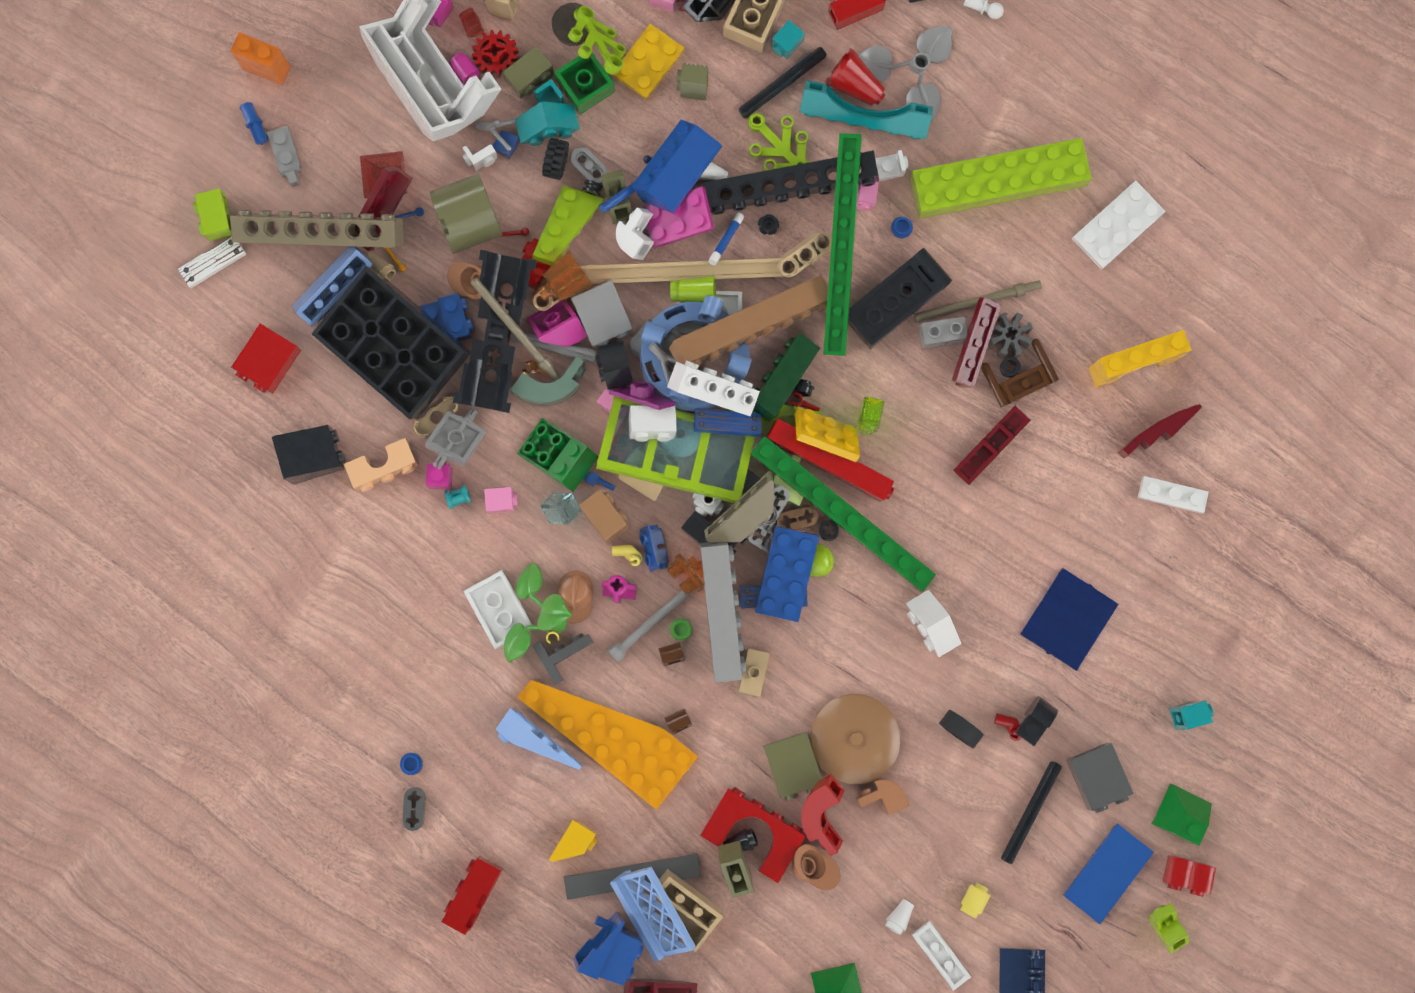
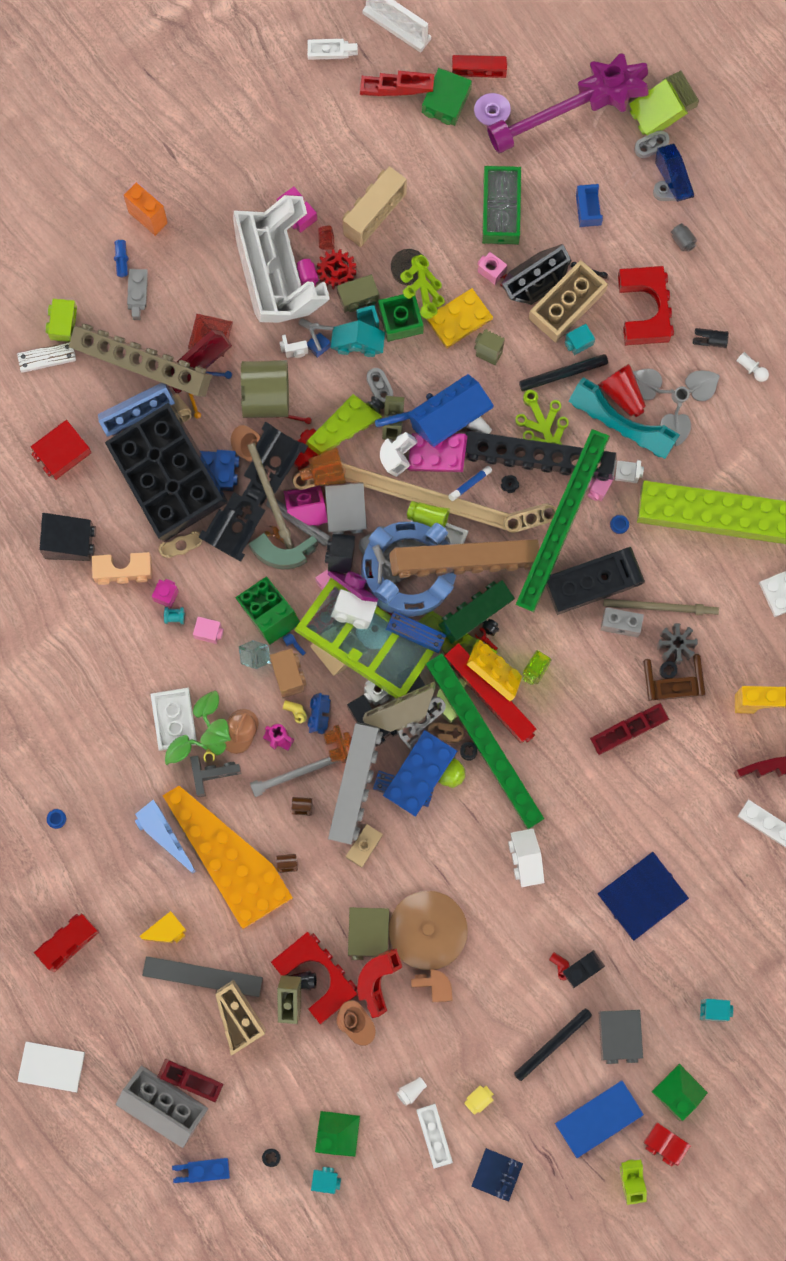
camera: 20 degrees right, 5 degrees down
(408, 809) = (40, 854): dark grey beam -> none
(455, 438) = (189, 567): light grey plate -> none
(555, 159) = (354, 370): black tyre -> none
(610, 951) = (162, 1030): blue piece -> none
(648, 923) = (200, 1016): light blue fence -> none
(680, 629) = (316, 788): bright green tile -> none
(712, 388) = (413, 599): white brick -> none
(961, 729) = (518, 952): black tyre -> none
(976, 343) = (645, 639): fence -> none

